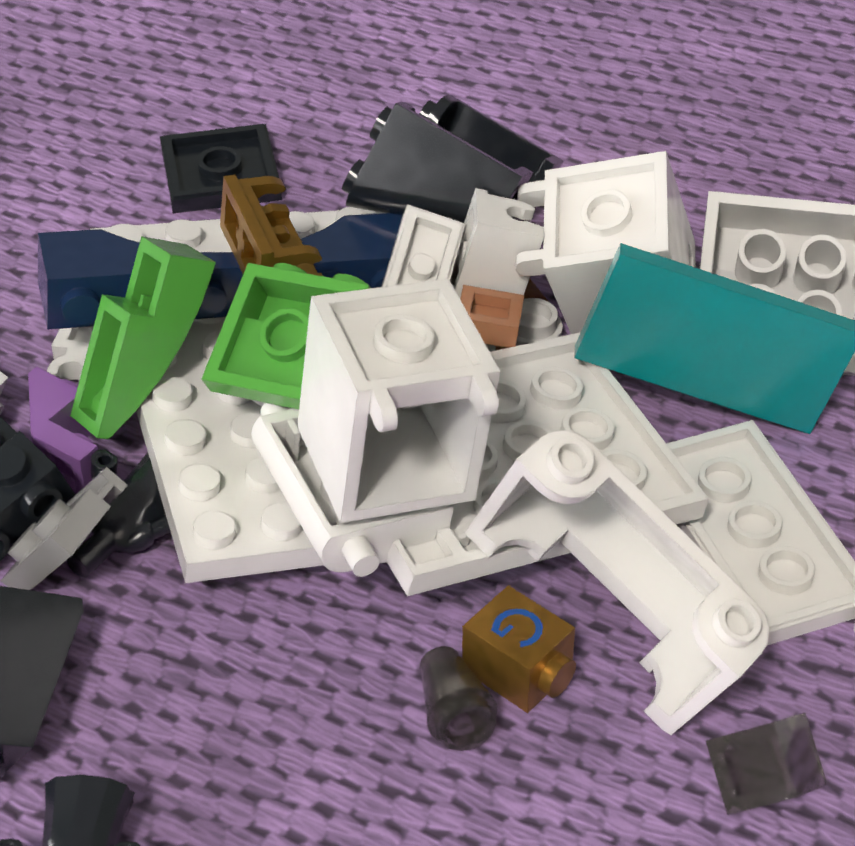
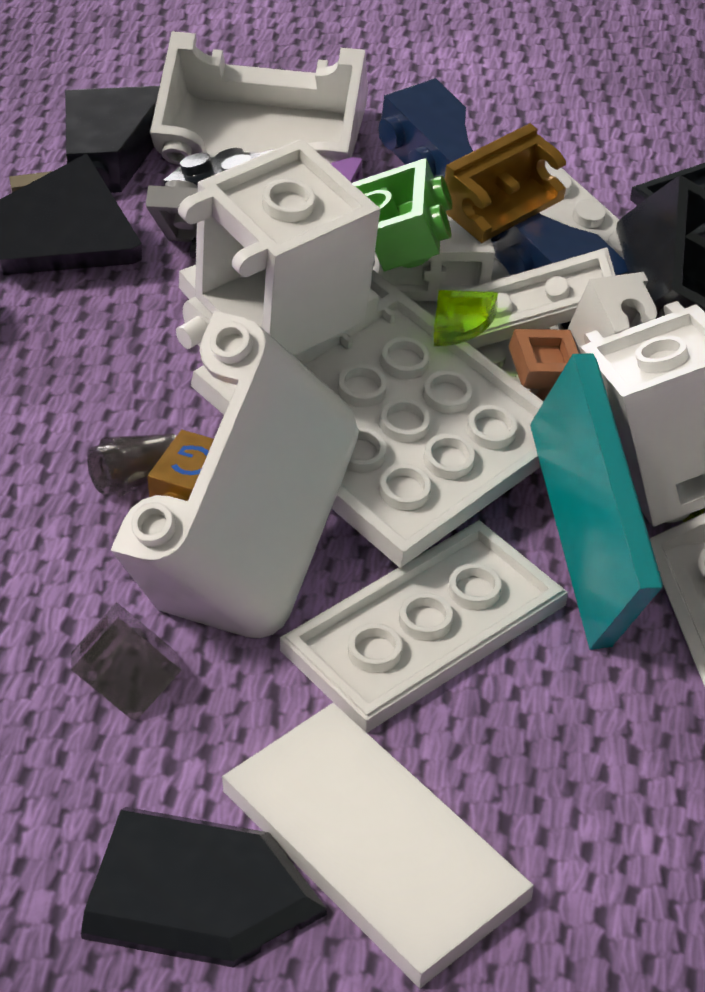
camera: 70 degrees right, 0 degrees up
(139, 333) = (385, 149): bright green slope -> none

